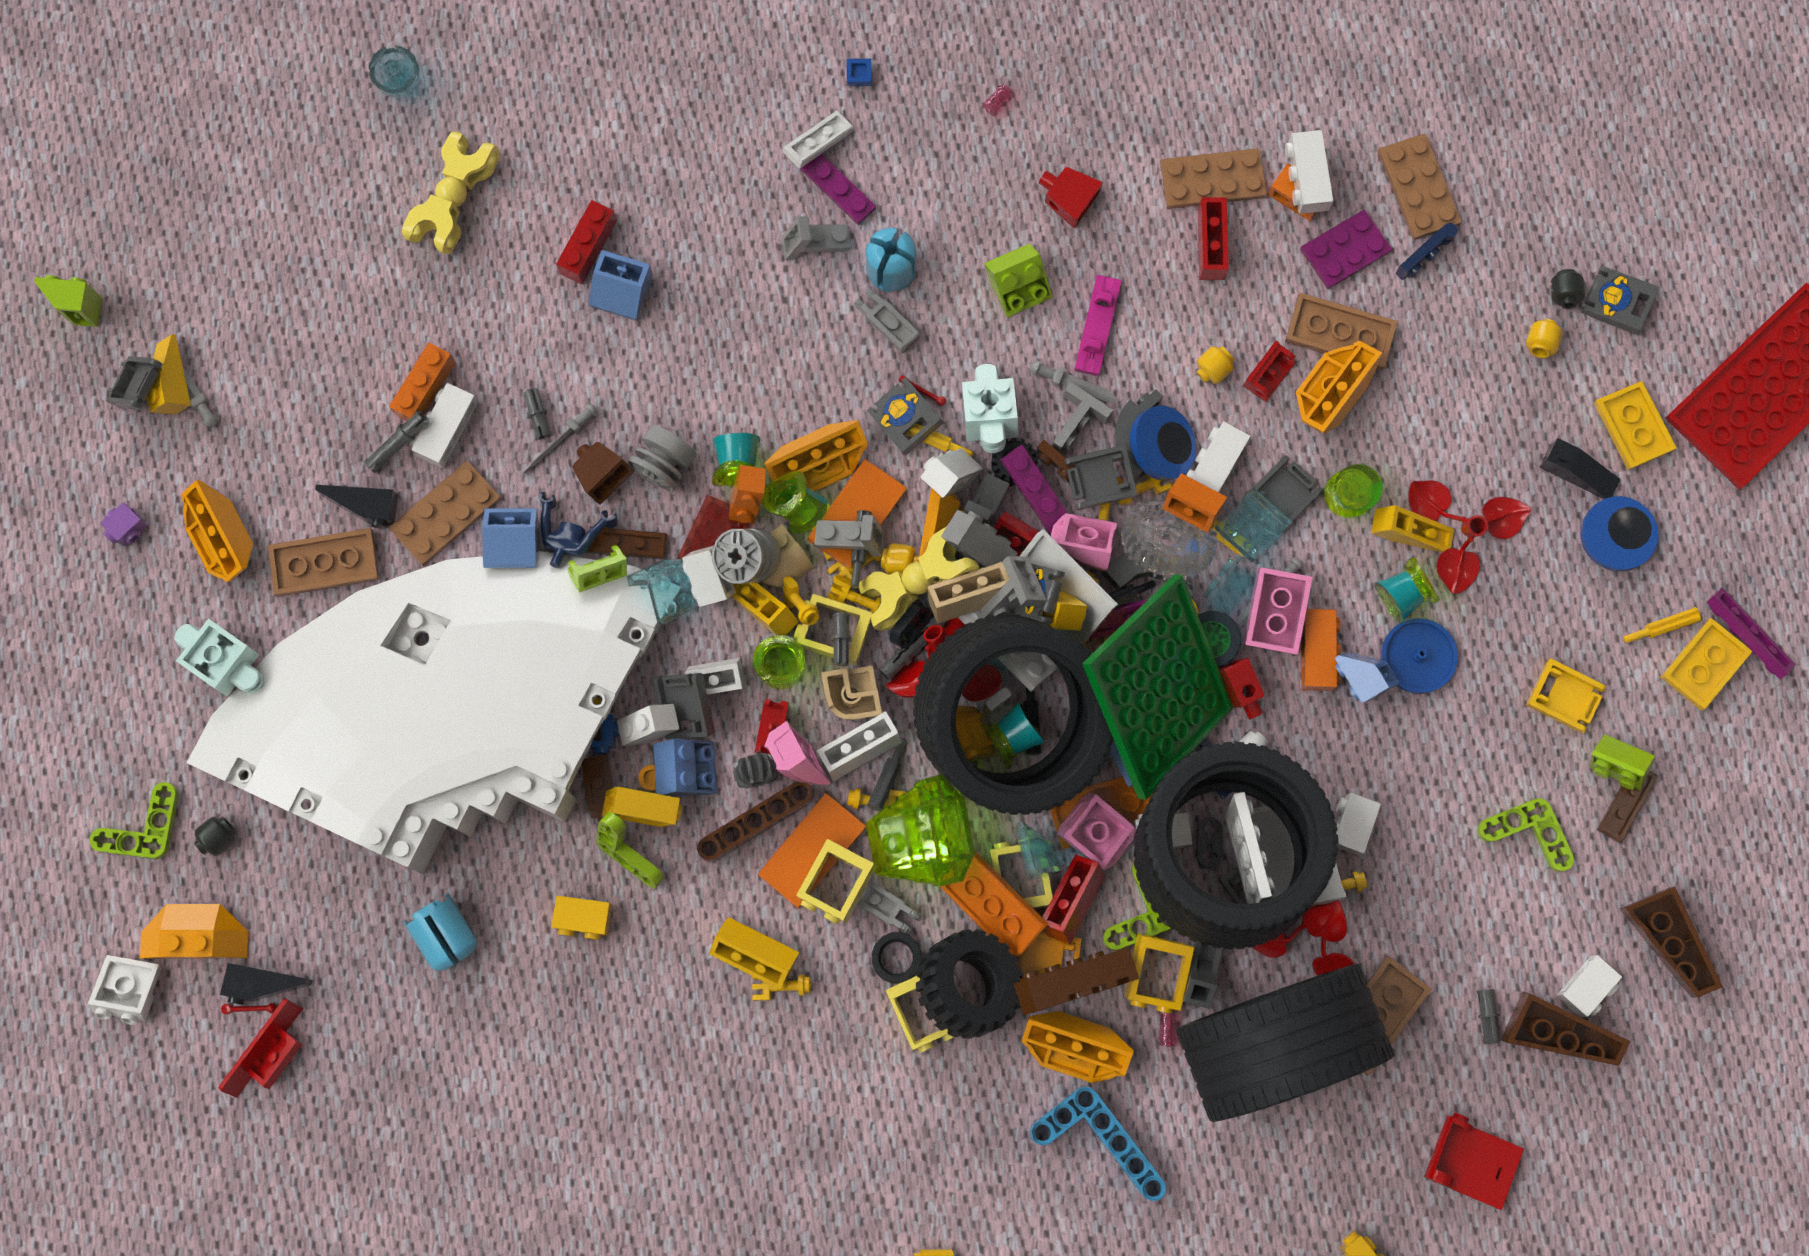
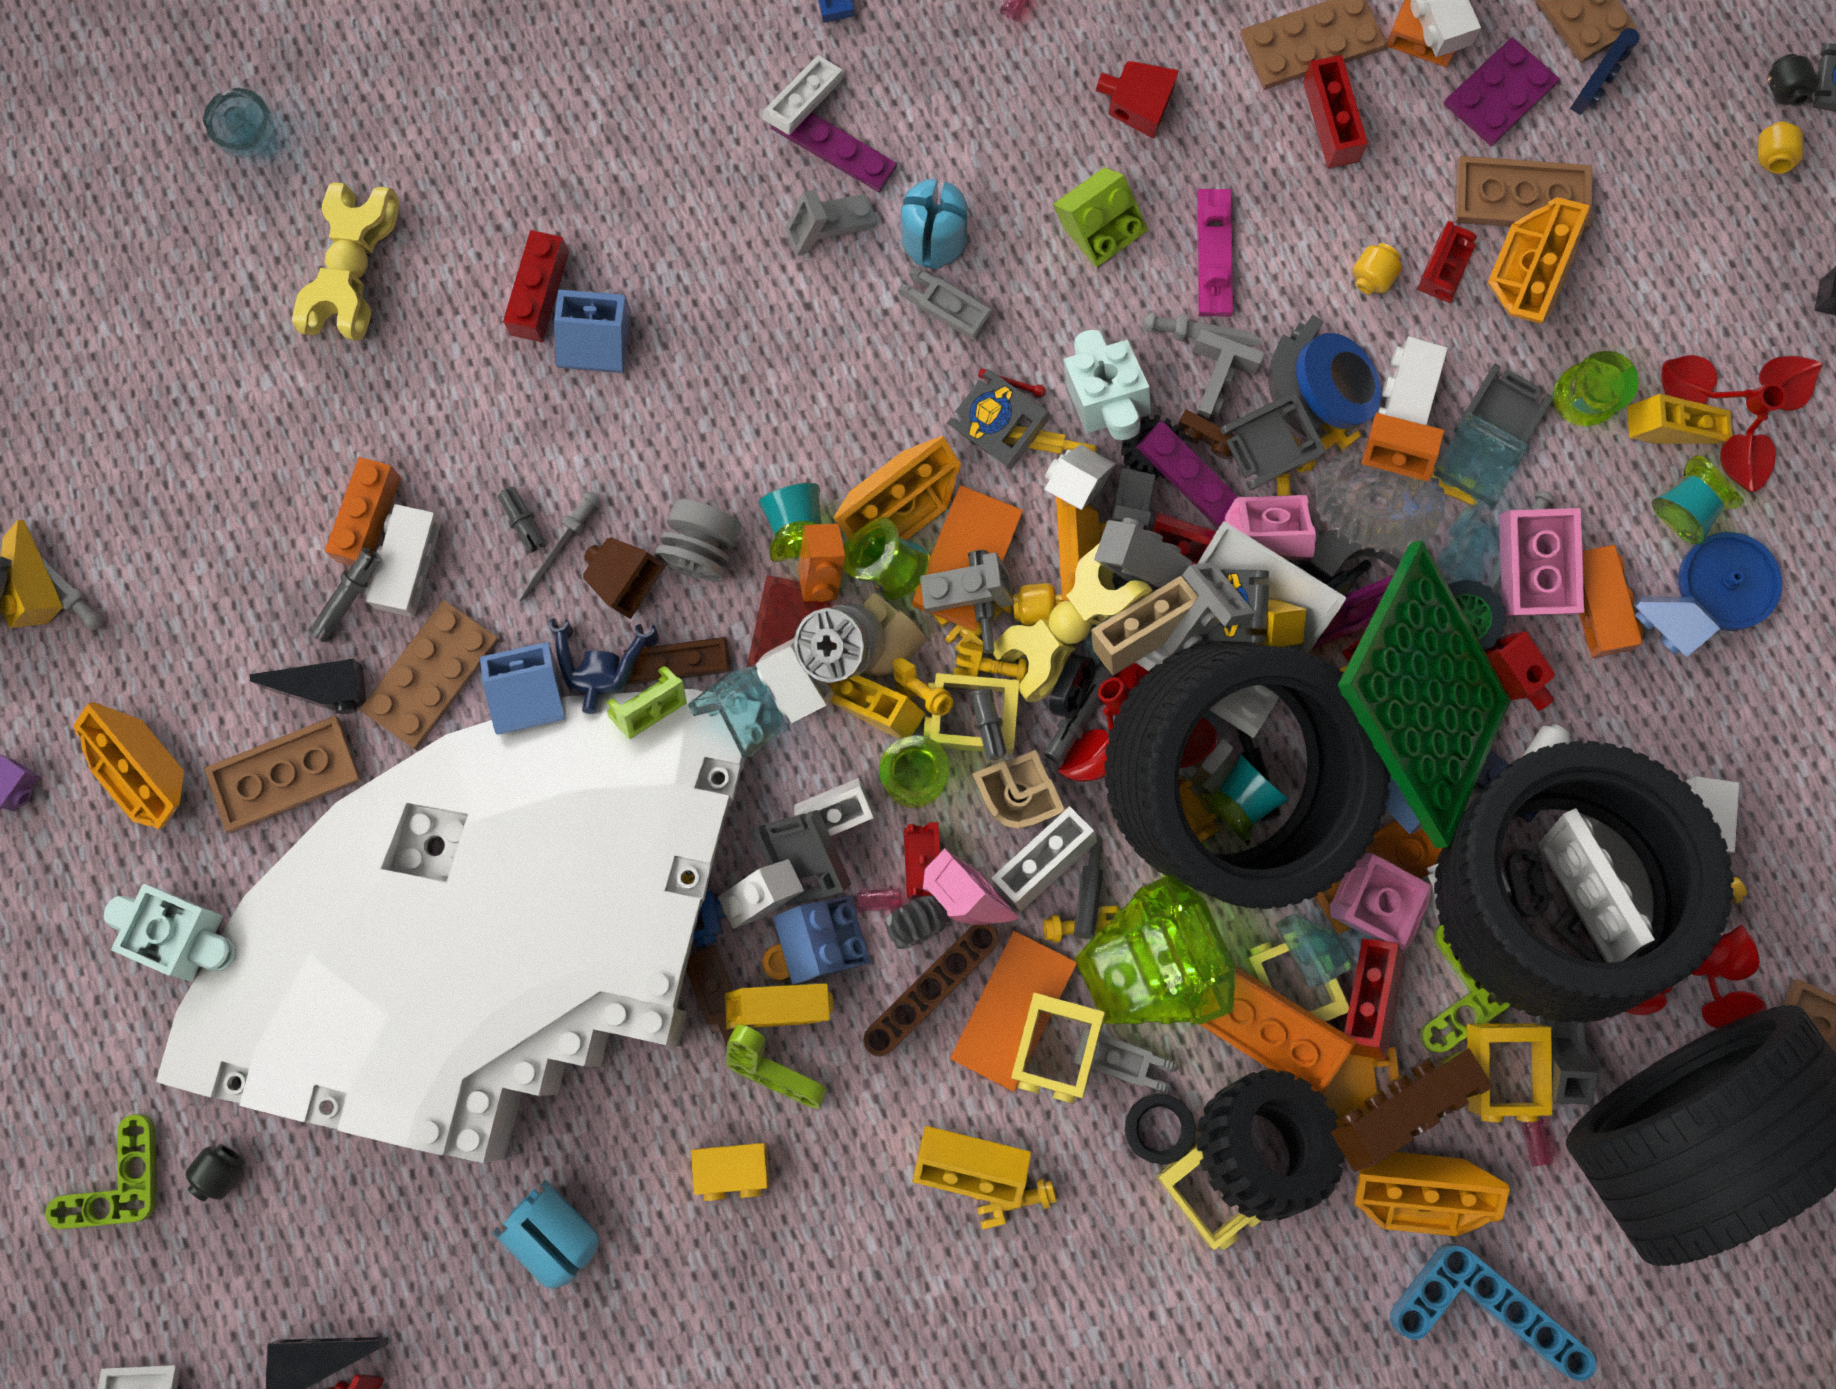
camera: 10 degrees left, 0 degrees up
(194, 933) = (215, 1312): light orange wedge -> none
(733, 749) = (879, 900): none -> clear pink pin

